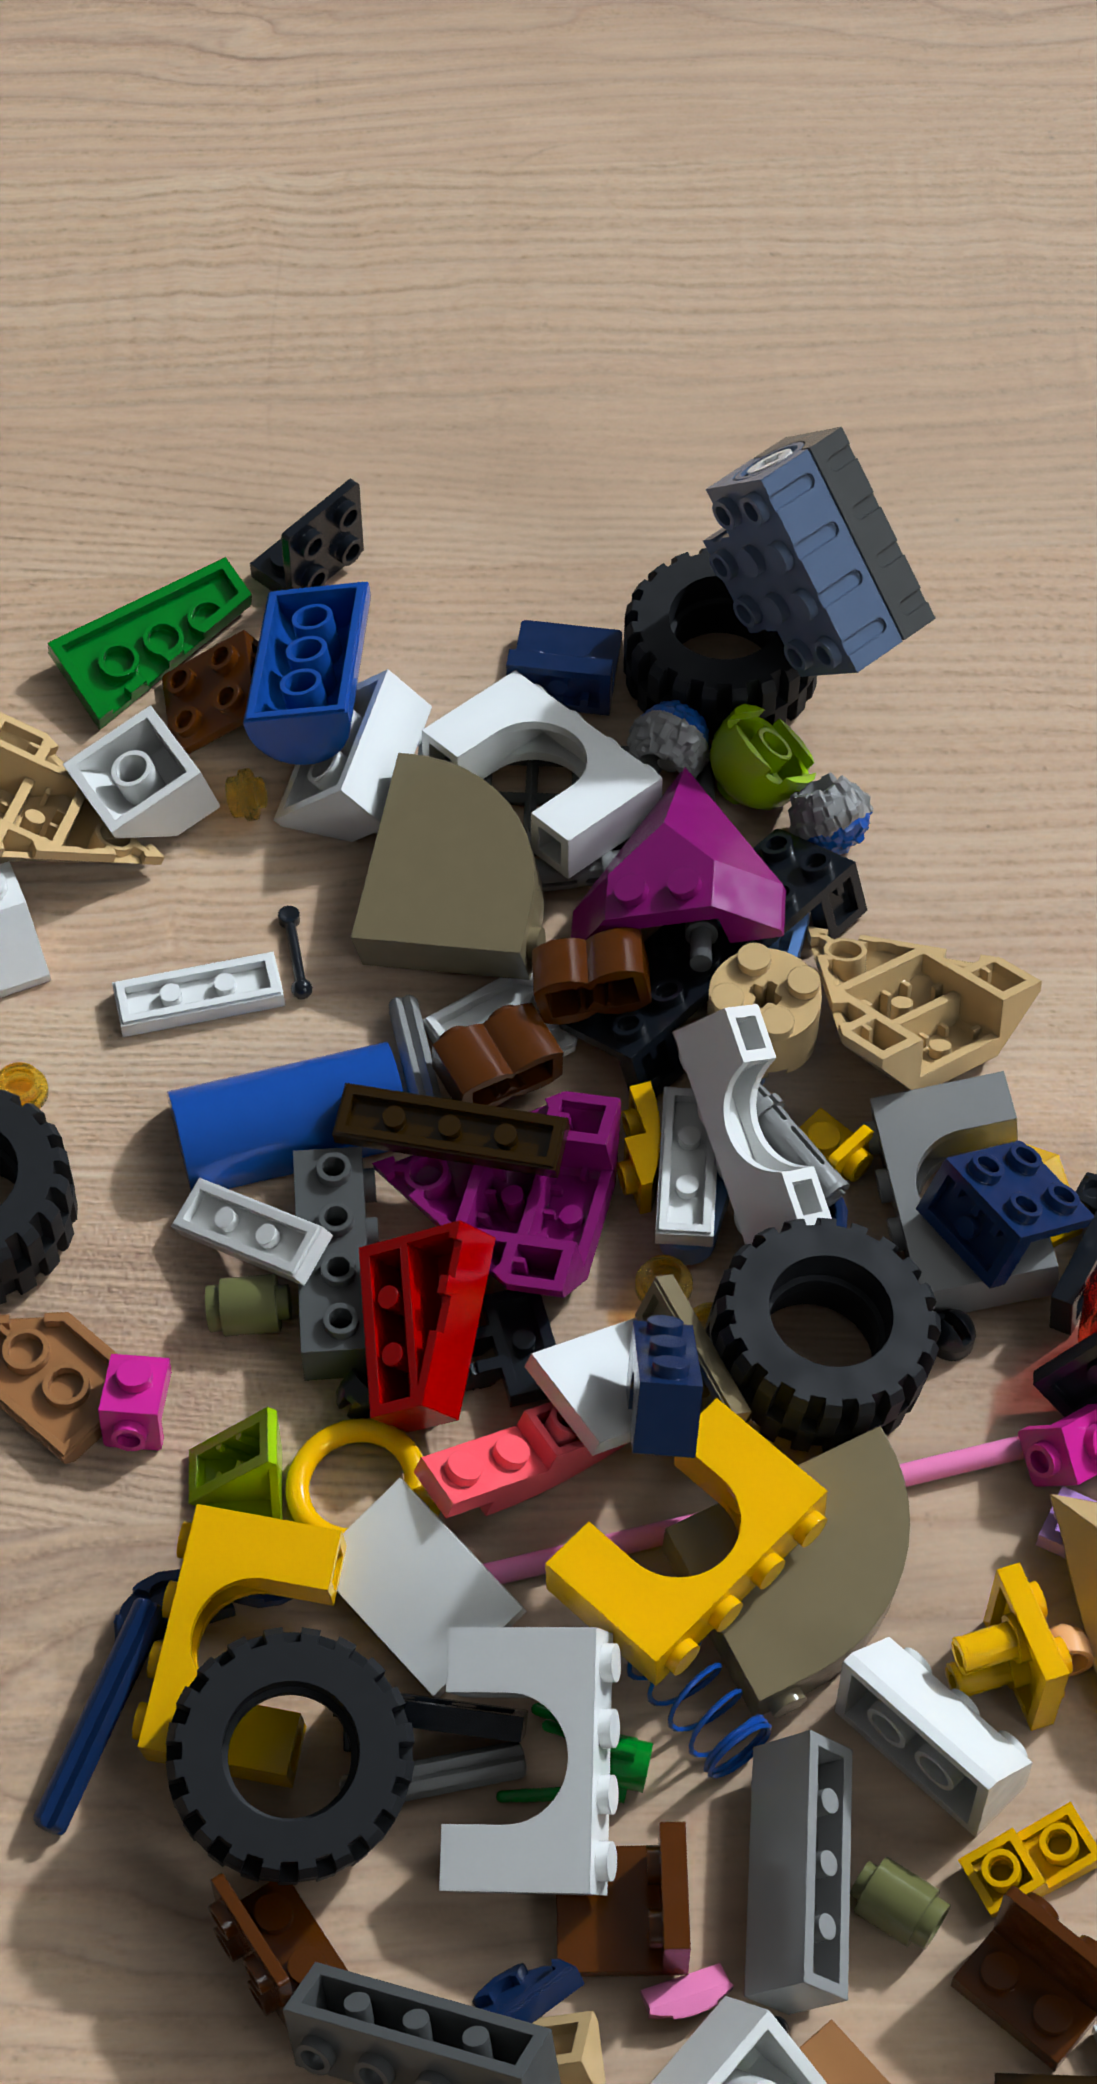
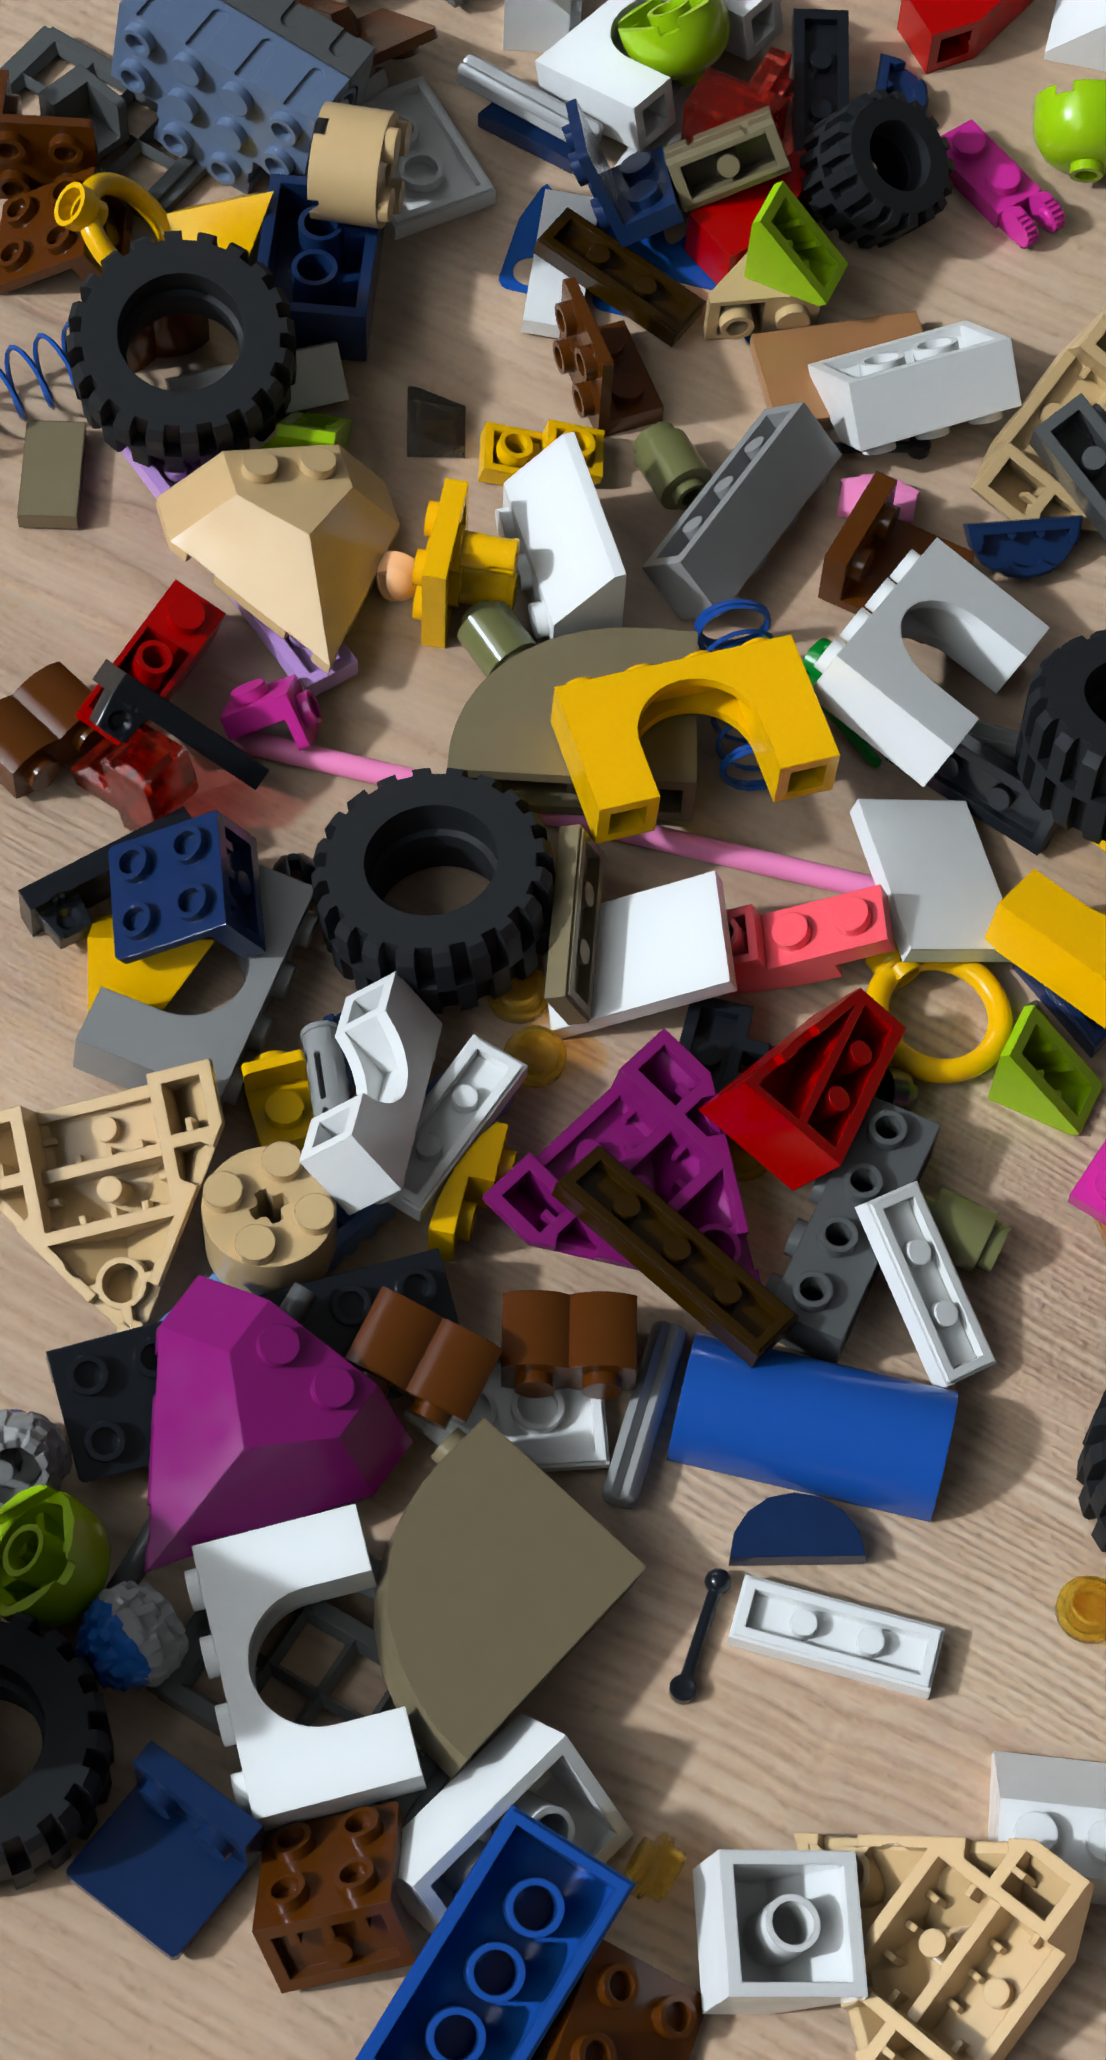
camera: 155 degrees left, 5 degrees up
(262, 1042) = (796, 1532): none -> dark blue tile
(440, 670) = (333, 1900): none -> reddish brown bracket
(664, 1387) = (656, 797): dark blue arch -> none
(928, 1622) = (492, 635): none -> olive brick

